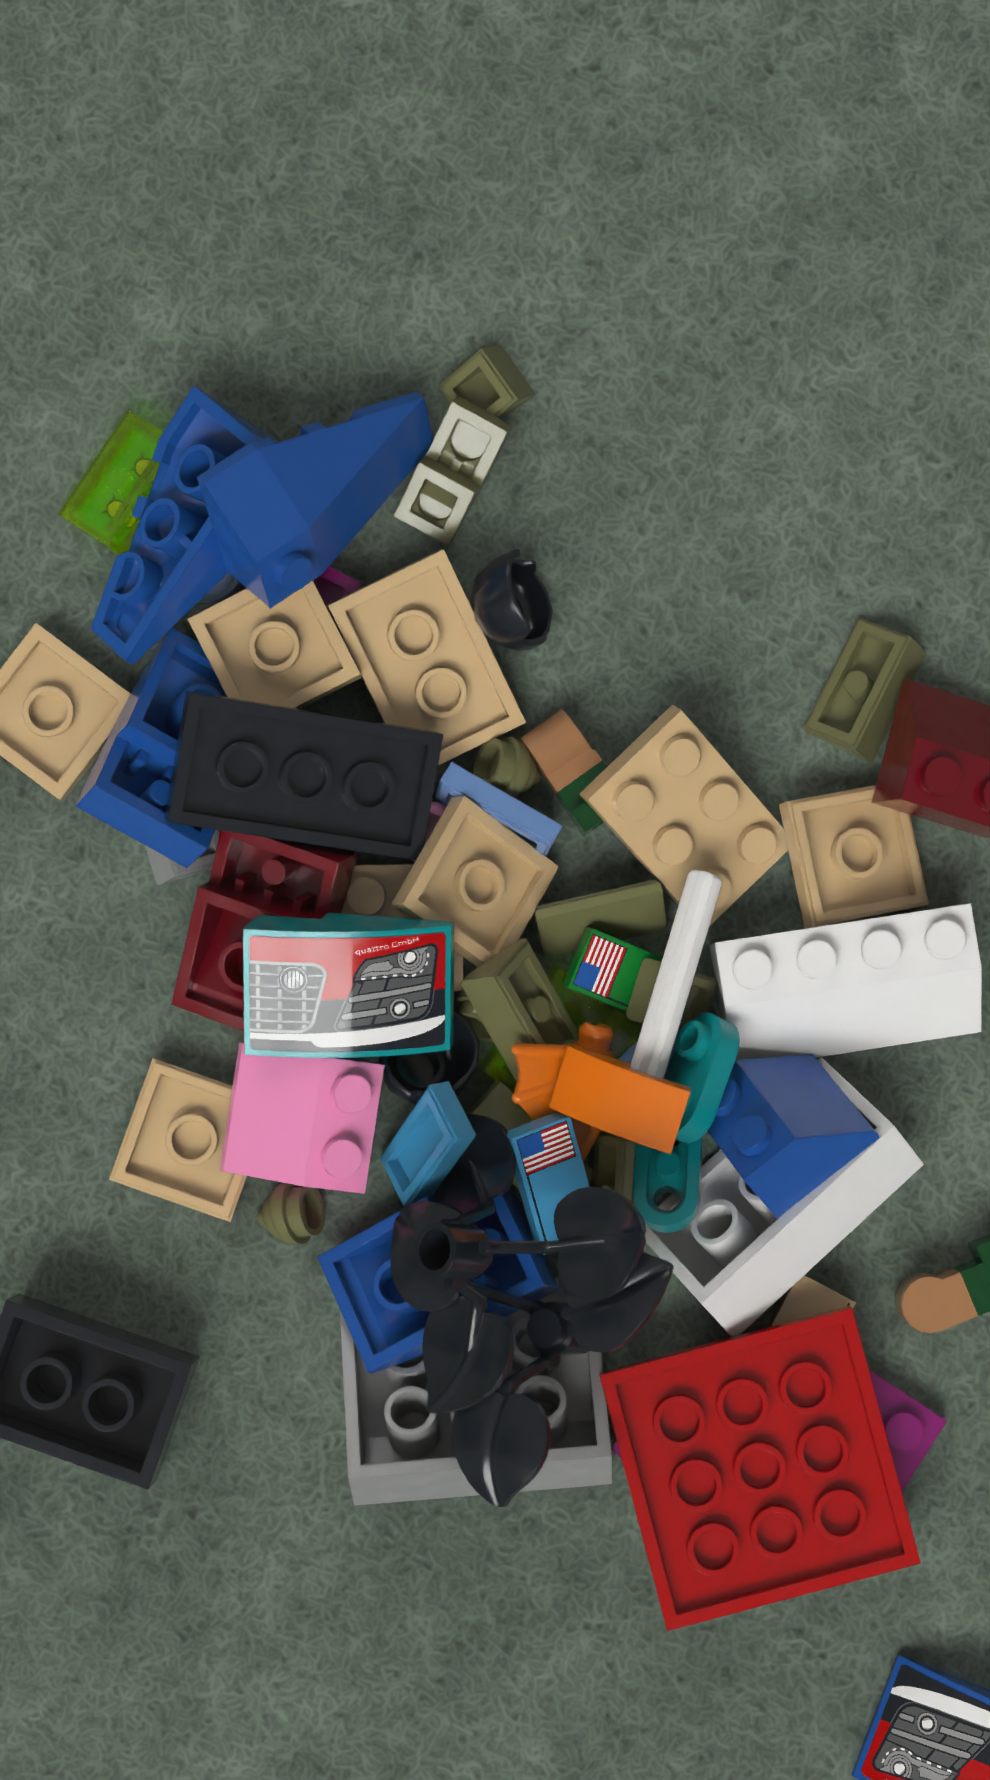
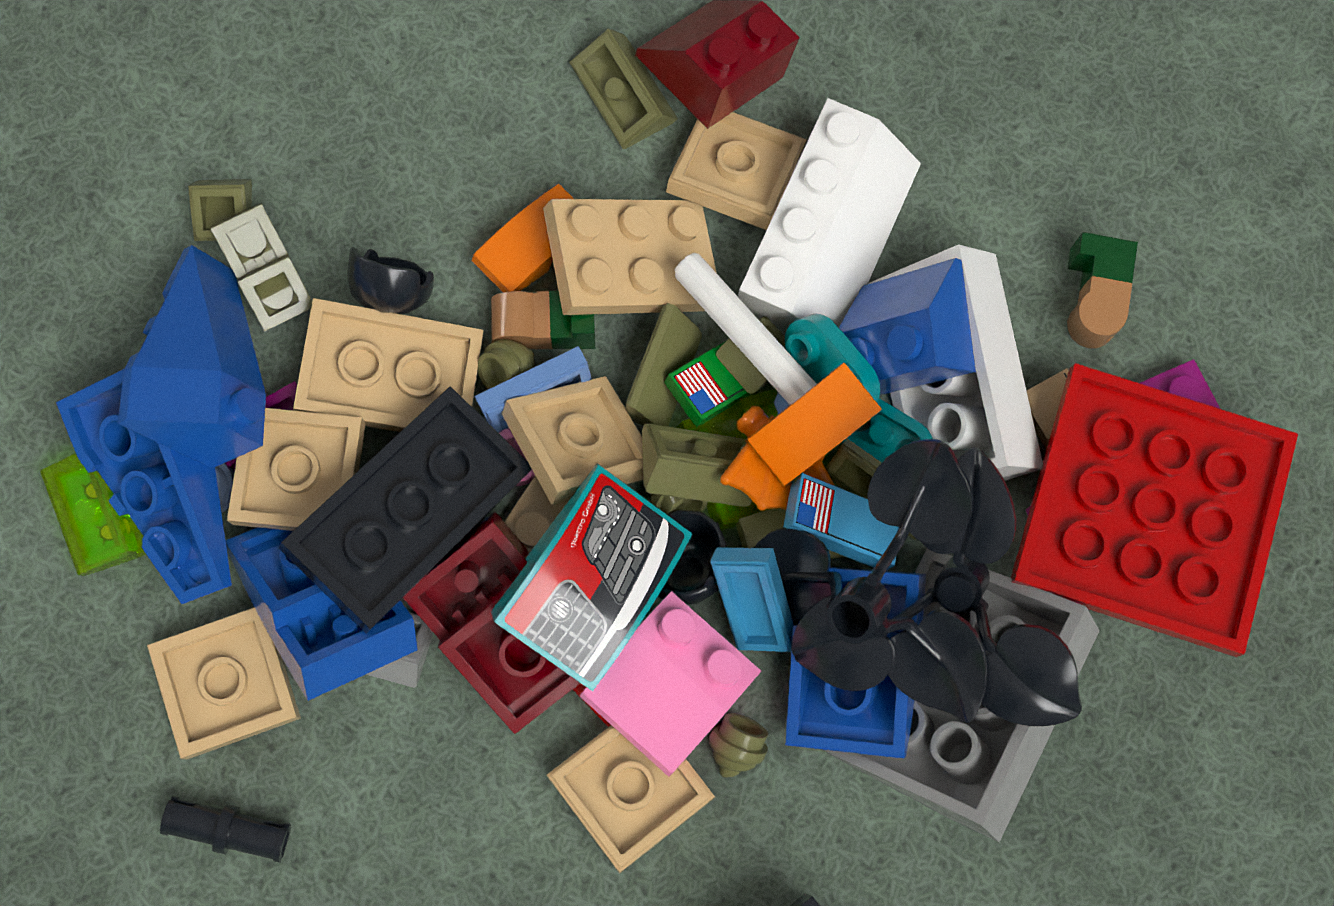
camera: 65 degrees left, 10 degrees down
(630, 701) = (521, 248): none -> orange slope

